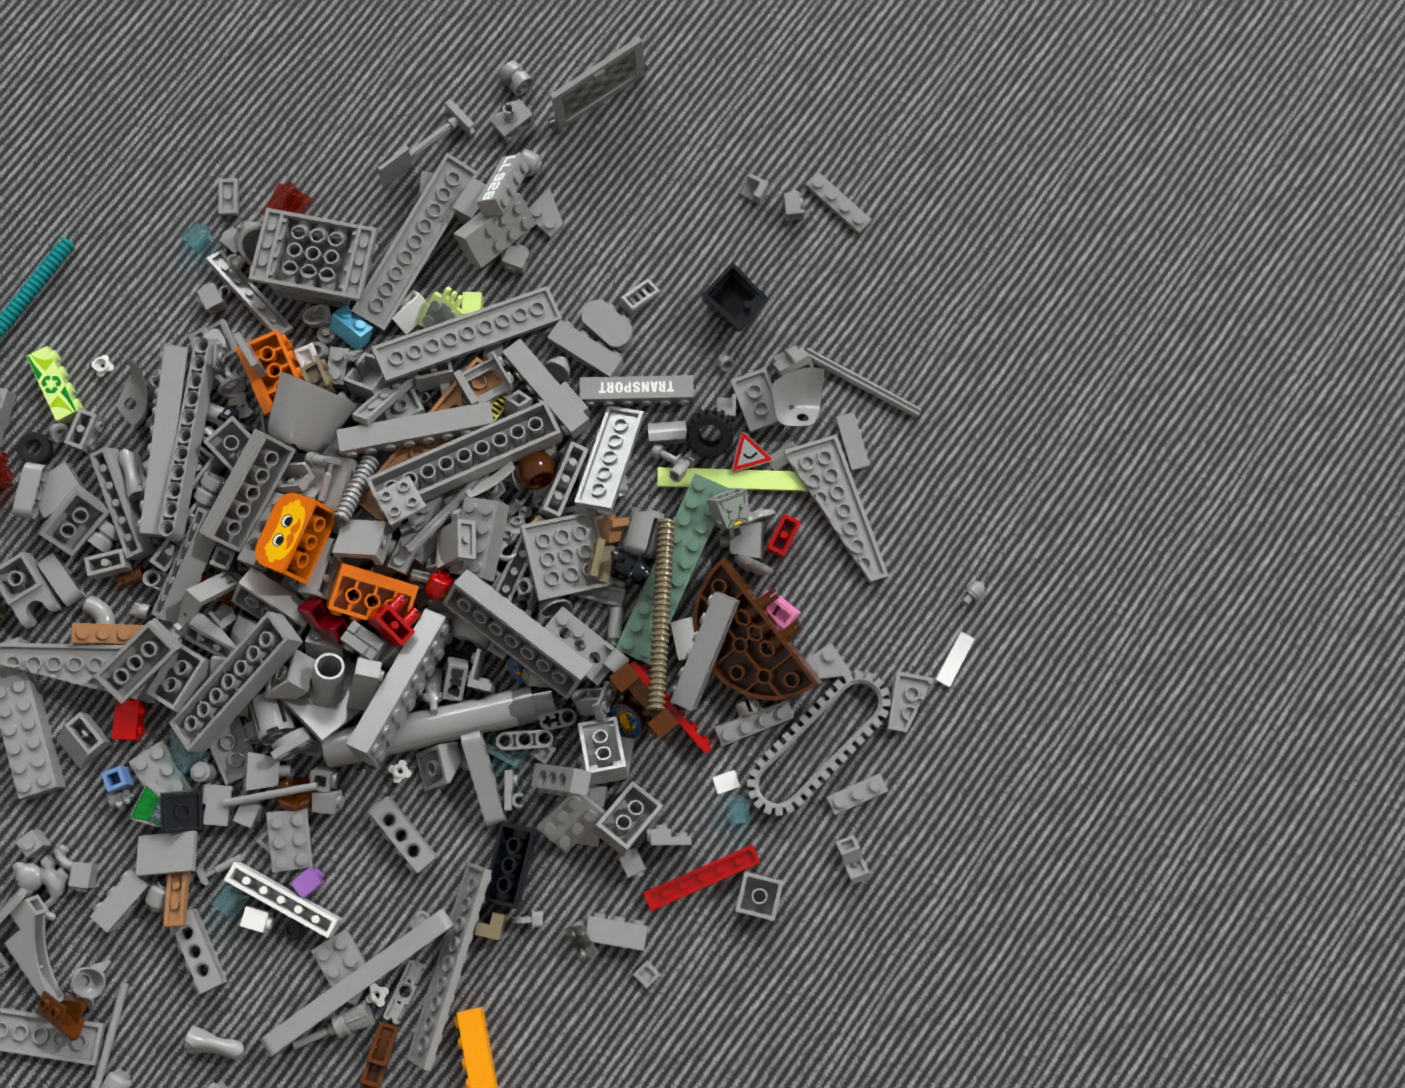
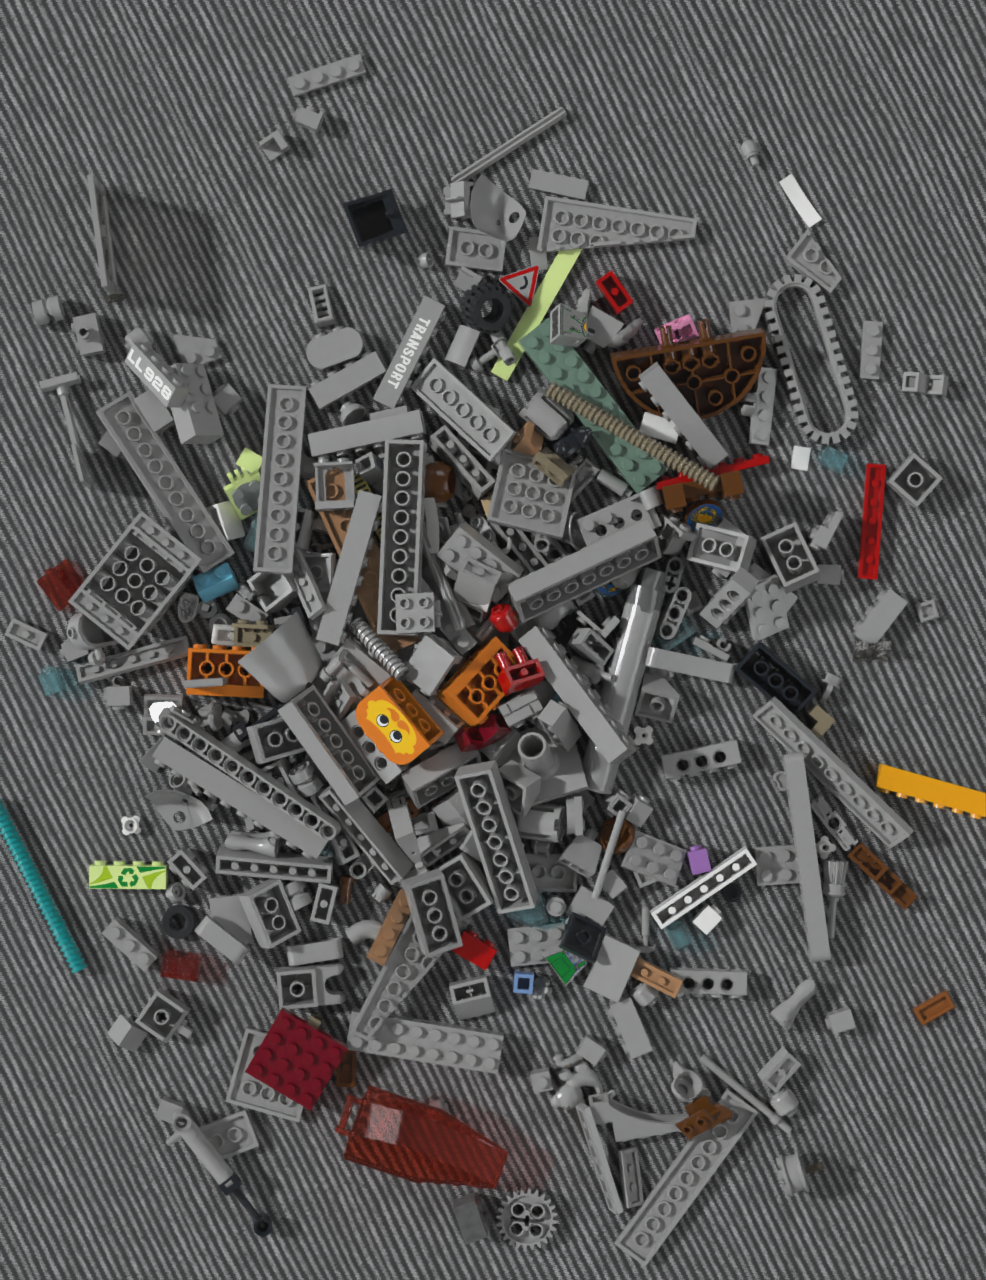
camera: 65 degrees left, 10 degrees up
(144, 1063) = (779, 1069): none -> light grey hinge

